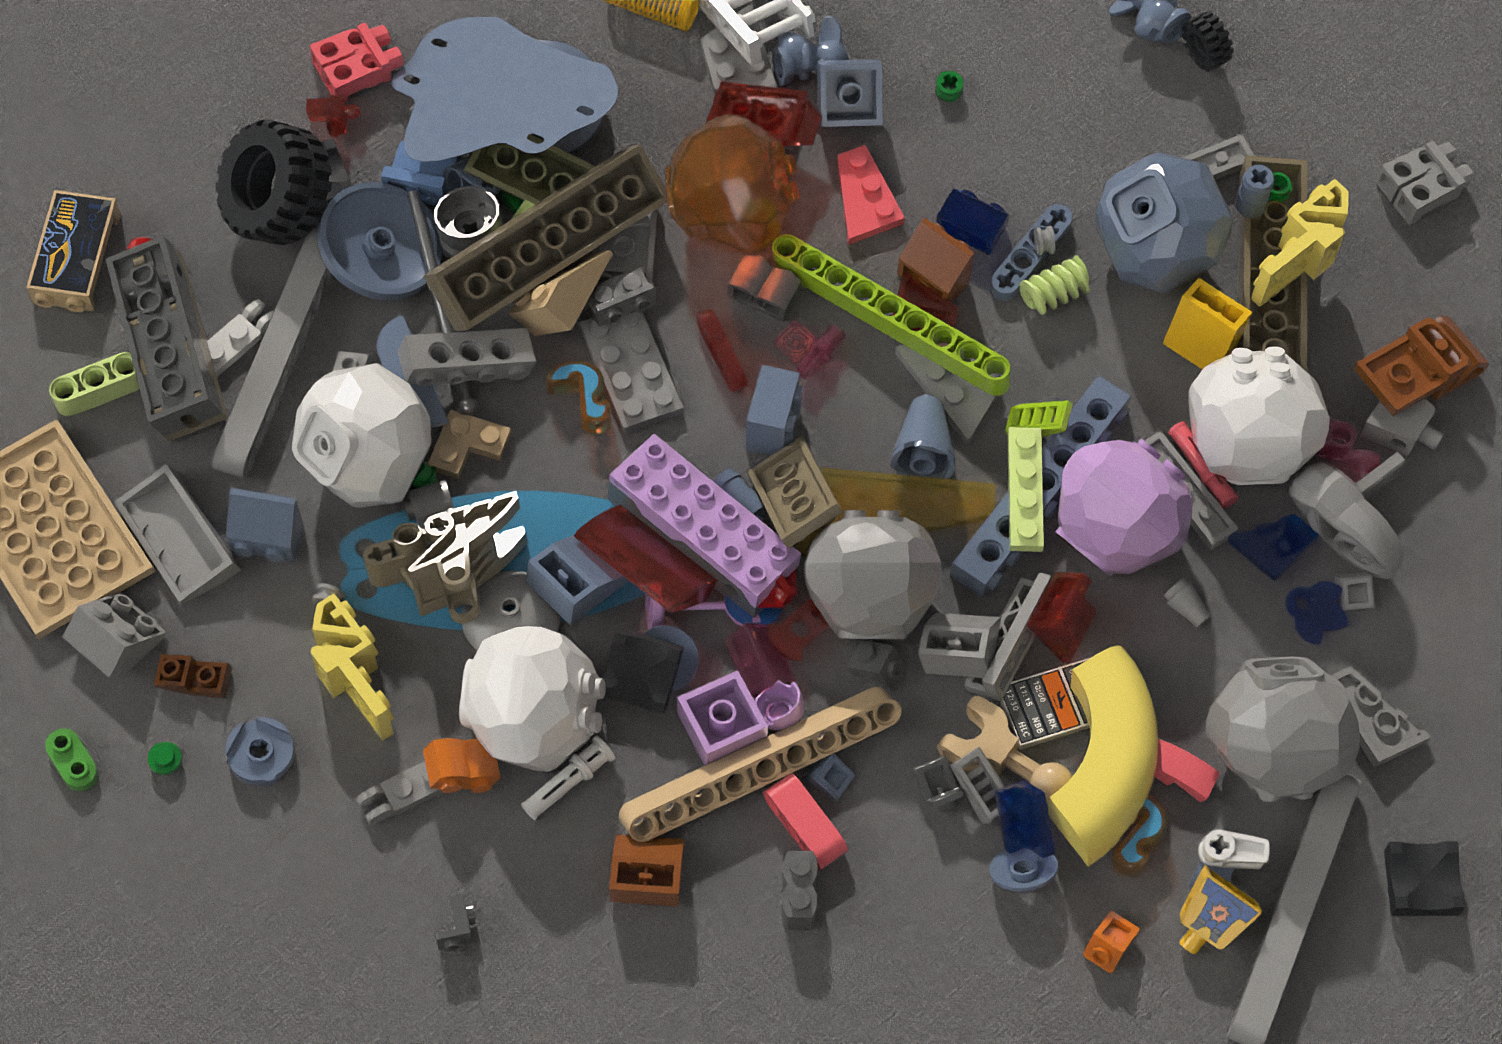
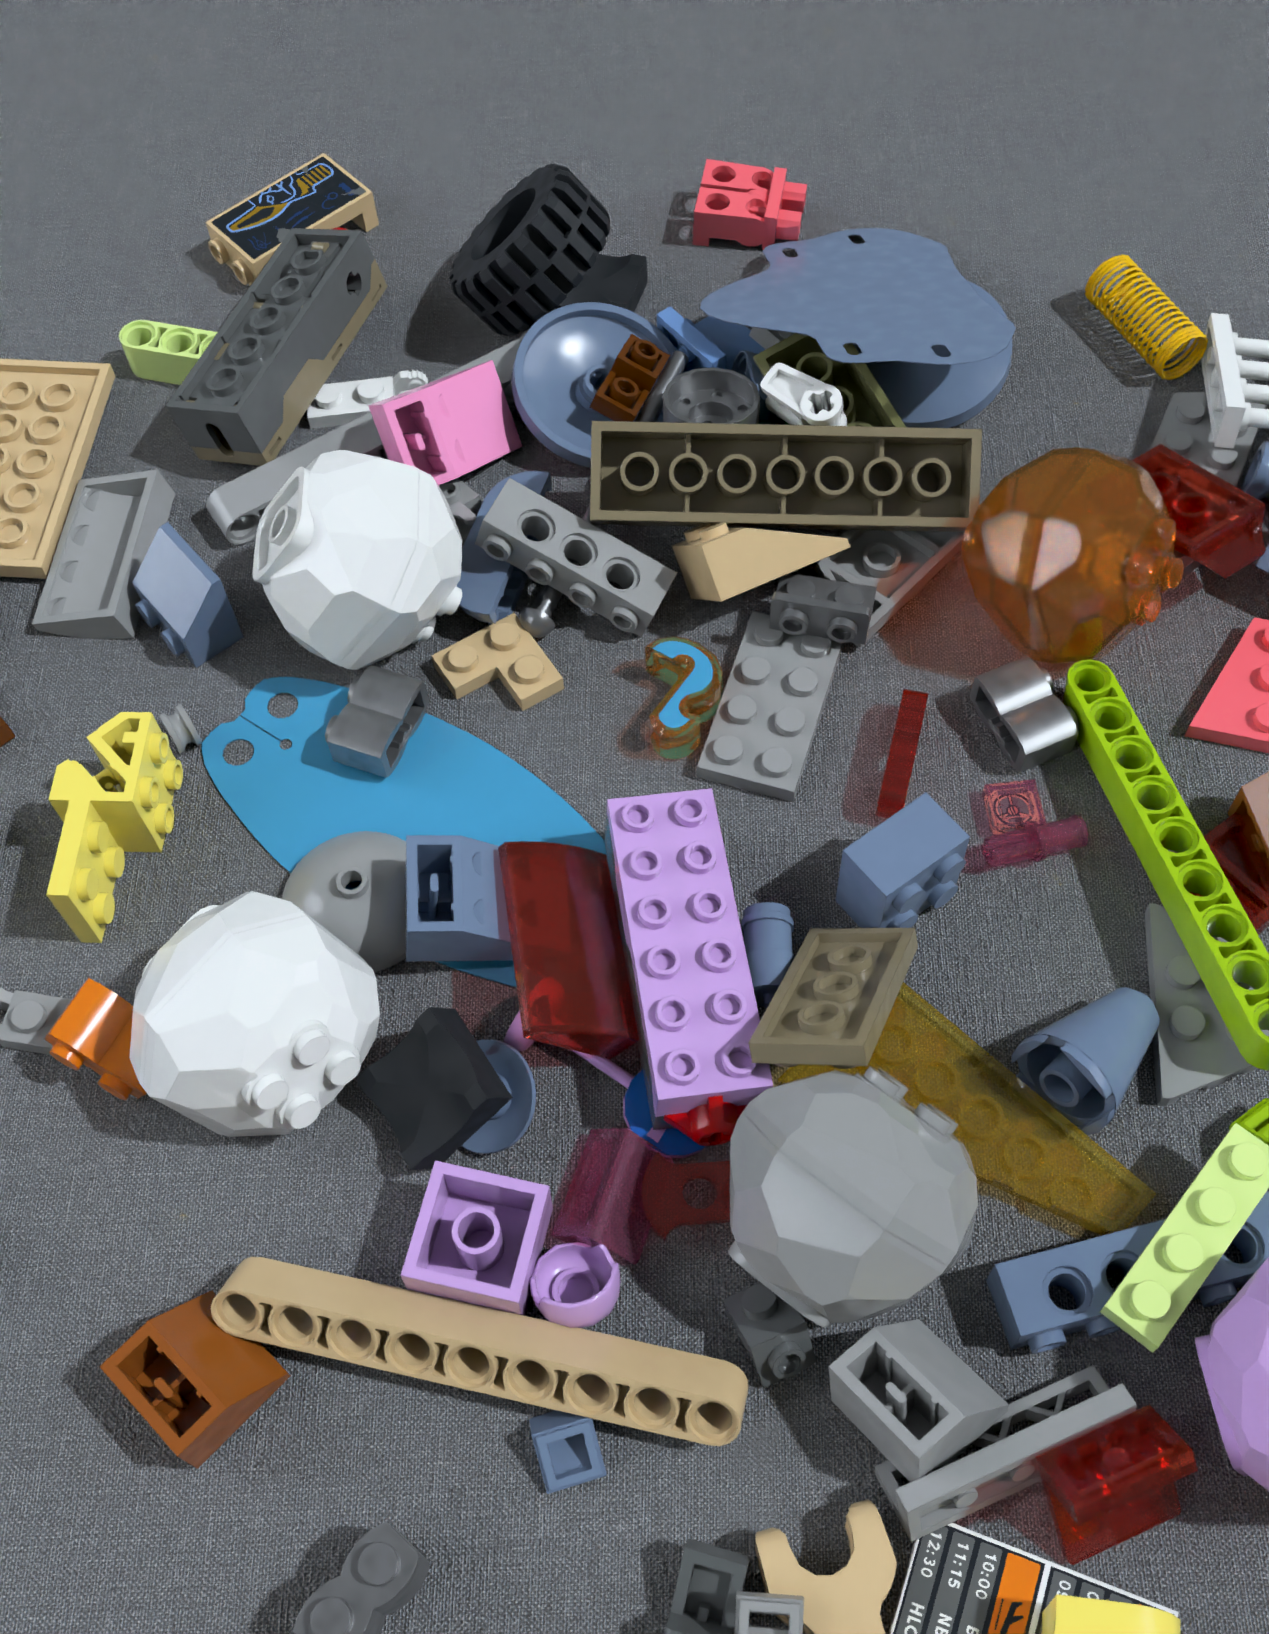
camera: 45 degrees right, 5 degrees down
(318, 328) = (448, 424): none -> bright pink slope
(333, 111) = (674, 242): clear red piece -> none
(399, 229) = (630, 380): none -> reddish brown slope
(424, 476) = (413, 663): green plate -> none
(457, 562) = (338, 779): dark tan piece -> none
(519, 181) = (802, 398): none -> white piece
(584, 771) = (254, 1165): white pin -> none
(805, 820) = (467, 1493): coral beam -> none

